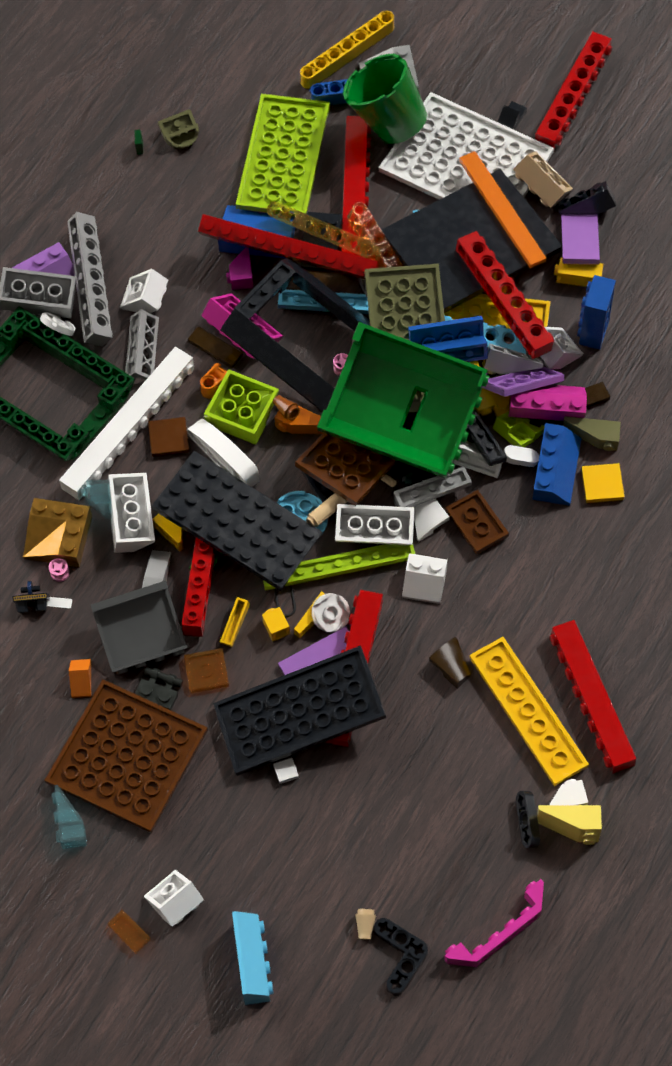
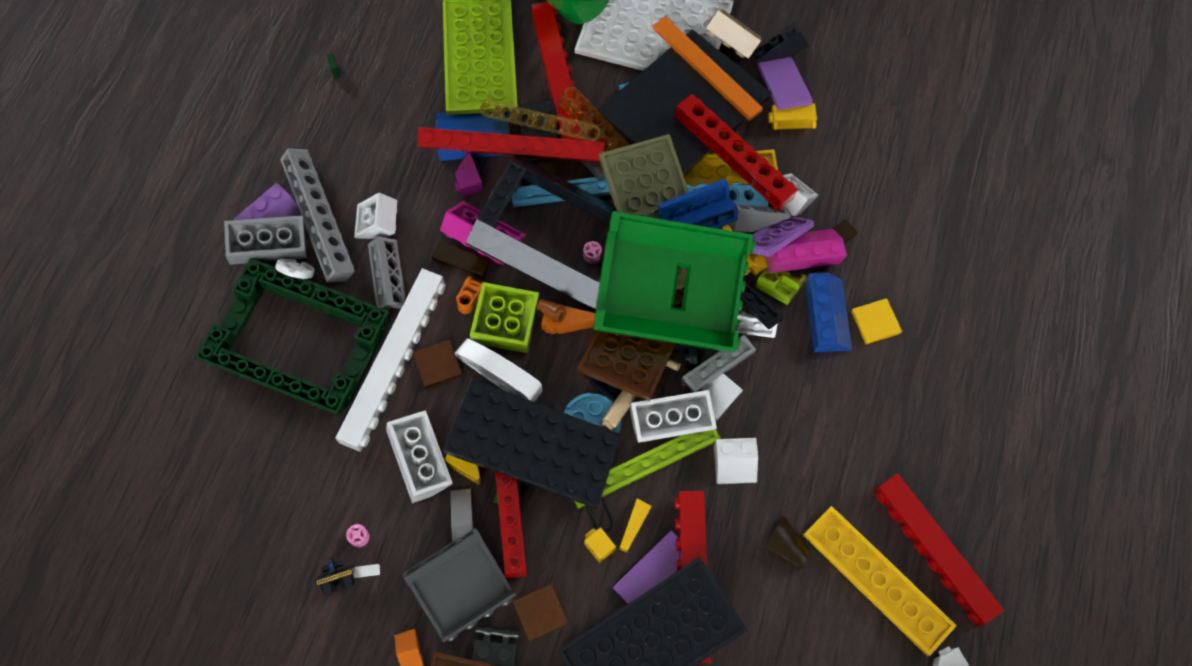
camera: 20 degrees left, 5 degrees up
(57, 531) = (346, 494): pearl gold slope -> none
(98, 496) = (381, 446): clear light blue slope -> none
(179, 129) = (371, 46): olive slope -> none
(235, 621) = (556, 552): yellow piece -> none
(330, 612) = (652, 519): white tile -> none
(477, 522) = (769, 388): reddish brown plate -> none
(521, 456) = (793, 310): white tile -> none
(596, 311) = (828, 151): blue brick -> none
(596, 432) = (856, 271): olive slope -> none

